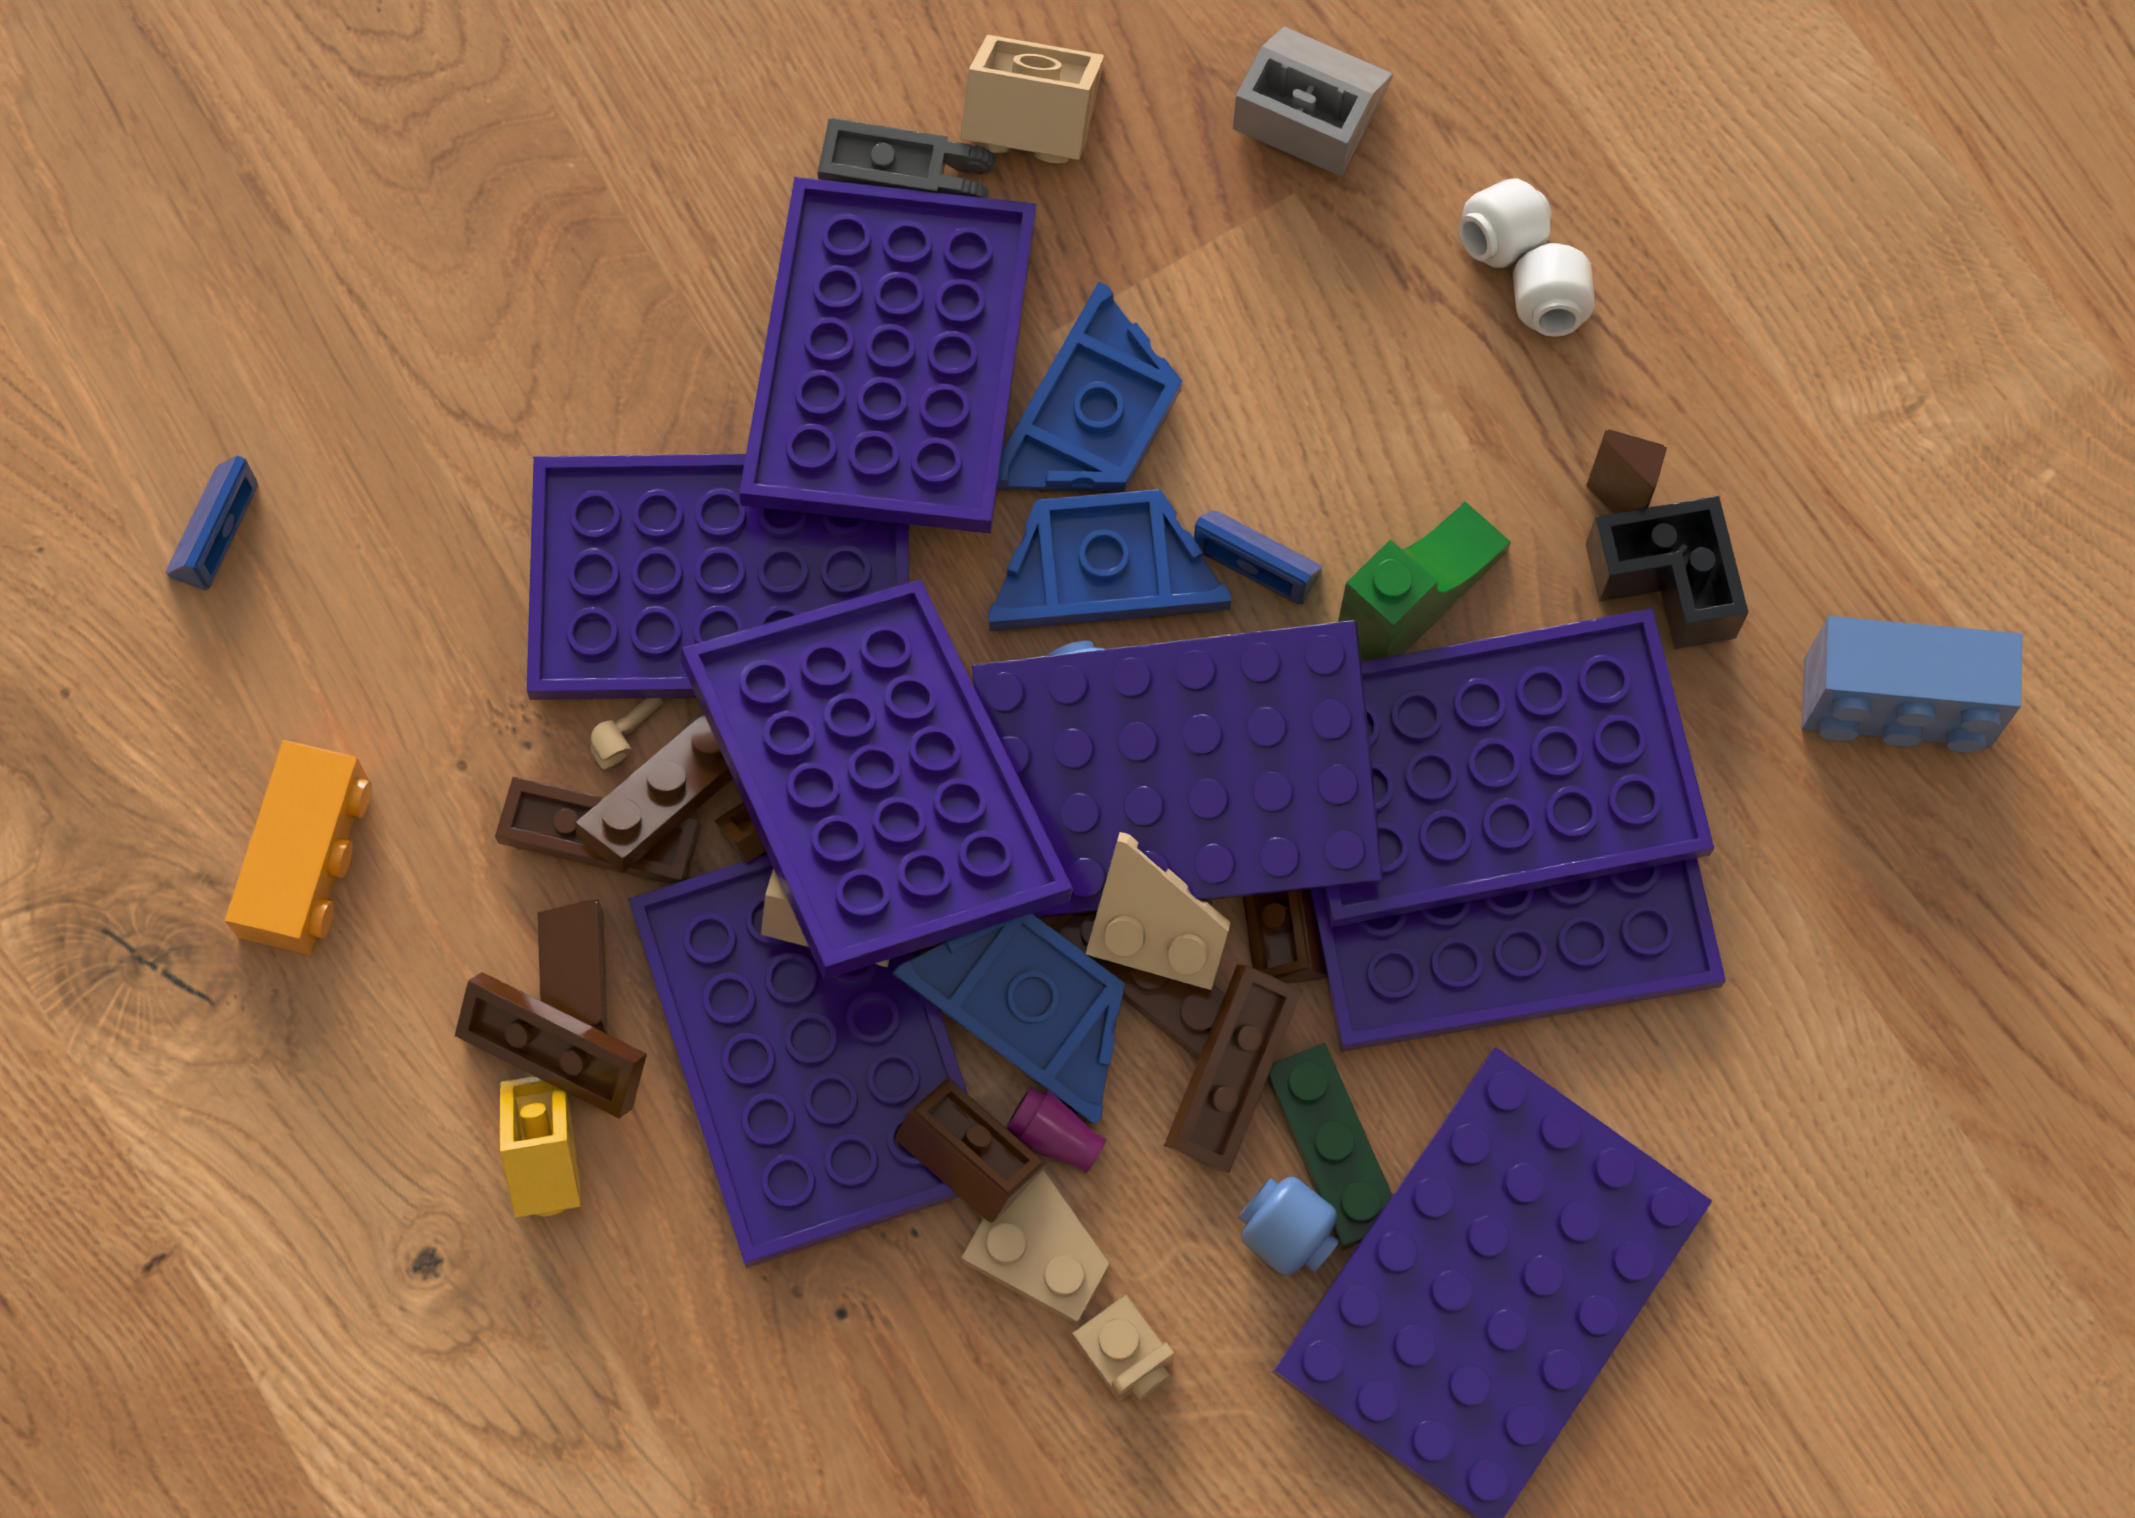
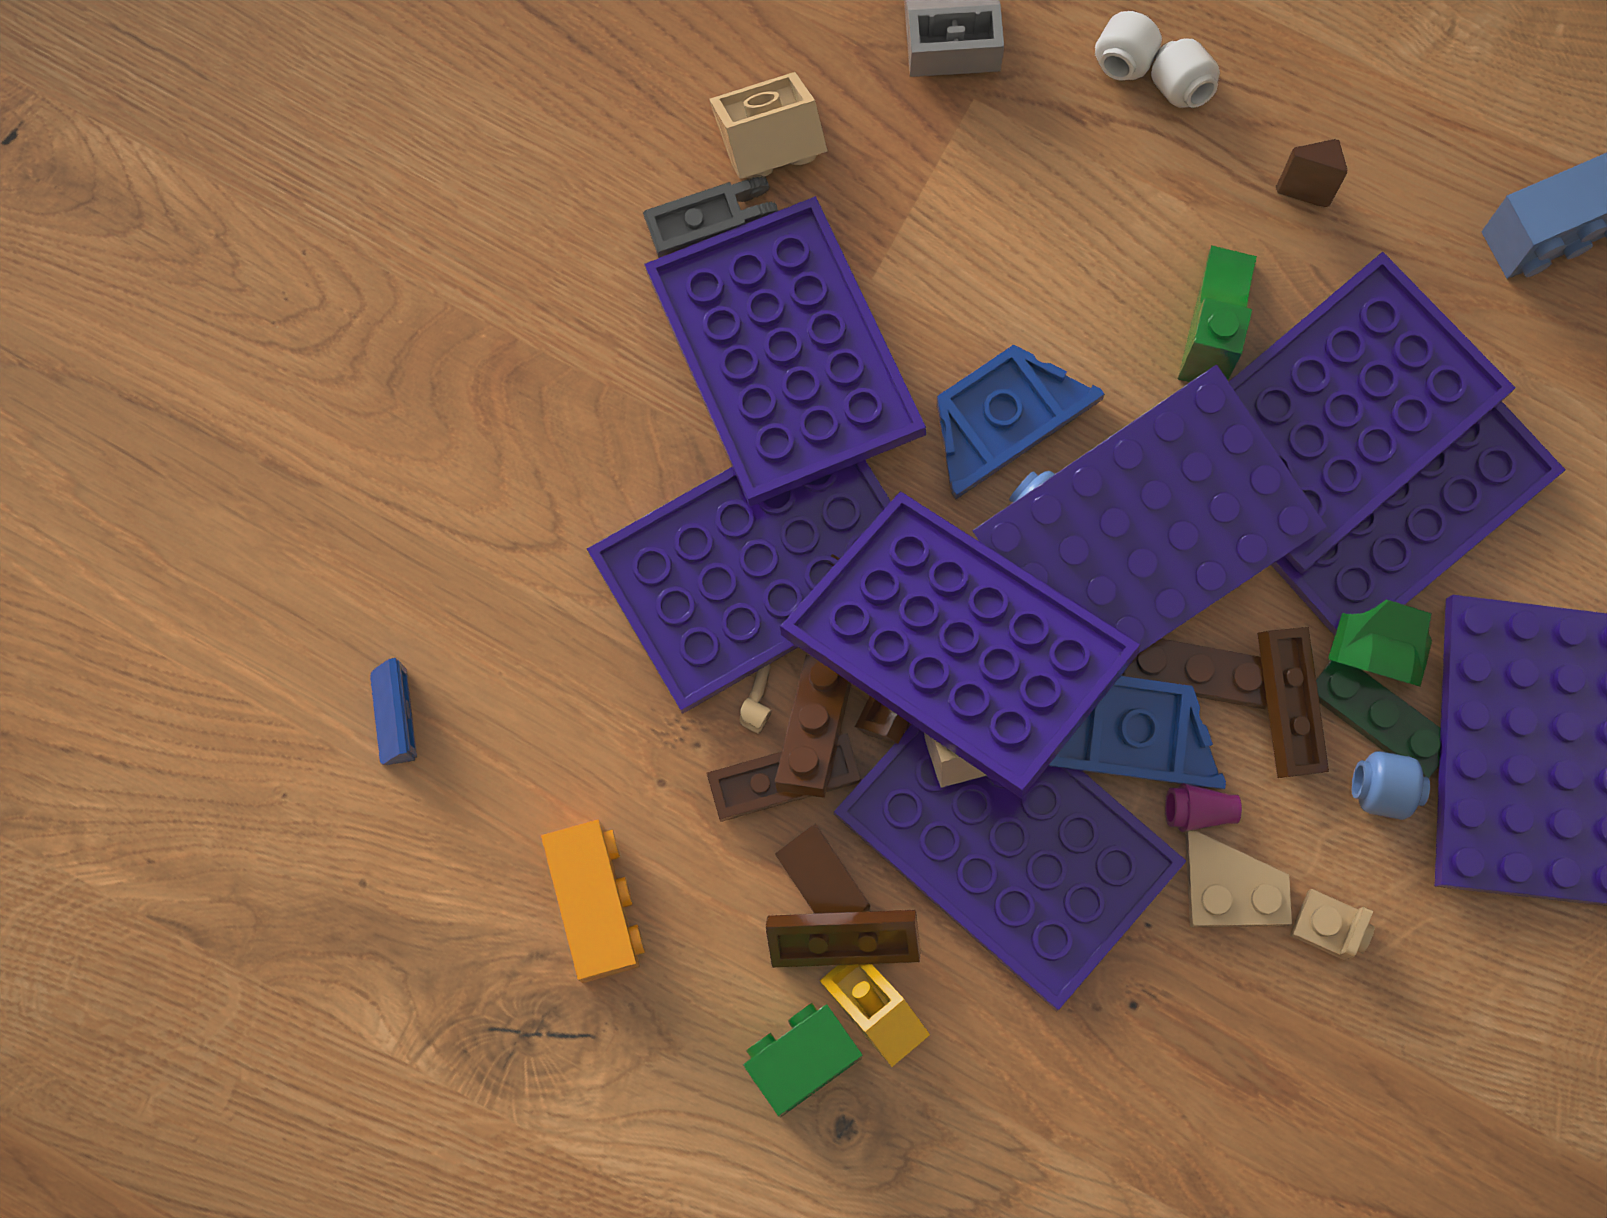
camera: 25 degrees left, 5 degrees up
(415, 1148) = (801, 1059): none -> green brick
(969, 1150) = (1160, 853): reddish brown slope -> none
(1092, 407) = (935, 311): blue wing -> none
(1155, 921) = (1192, 635): tan wing -> none
(1256, 556) = (1100, 354): blue slope -> none
(1284, 936) = (1270, 599): reddish brown slope -> none
(1383, 1058) = (1385, 641): none -> green slope
(1683, 555) = (1376, 206): black brick -> none

